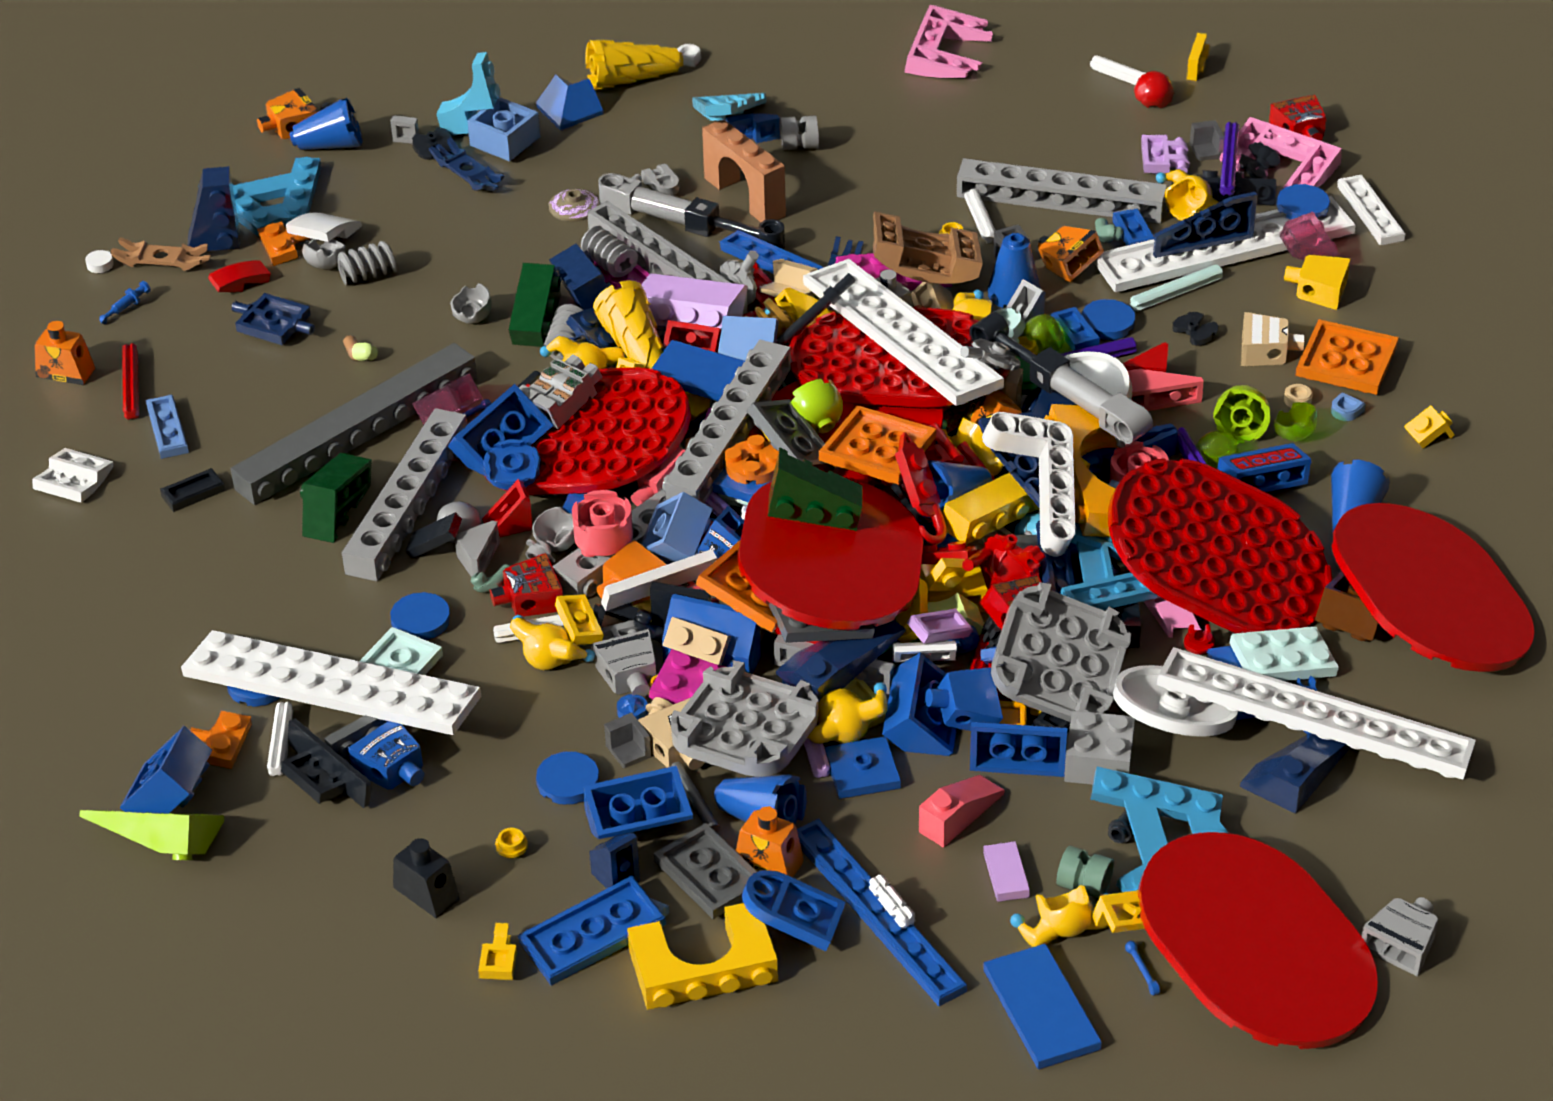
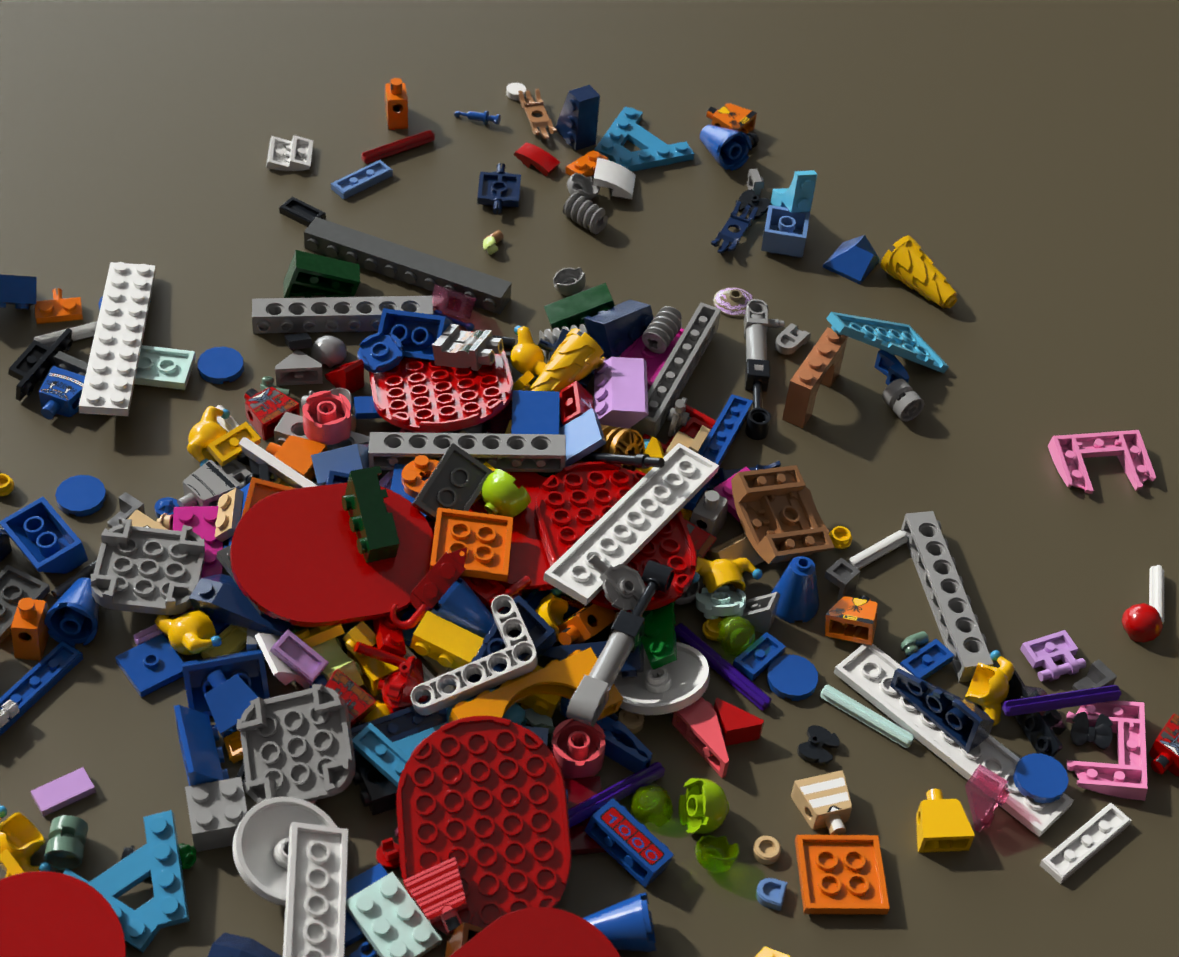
camera: 60 degrees right, 5 degrees up
(691, 54) = (967, 307): white tile -> none
(956, 807) = (122, 737): coral slope -> none
(1278, 600) = (440, 893): none -> torso

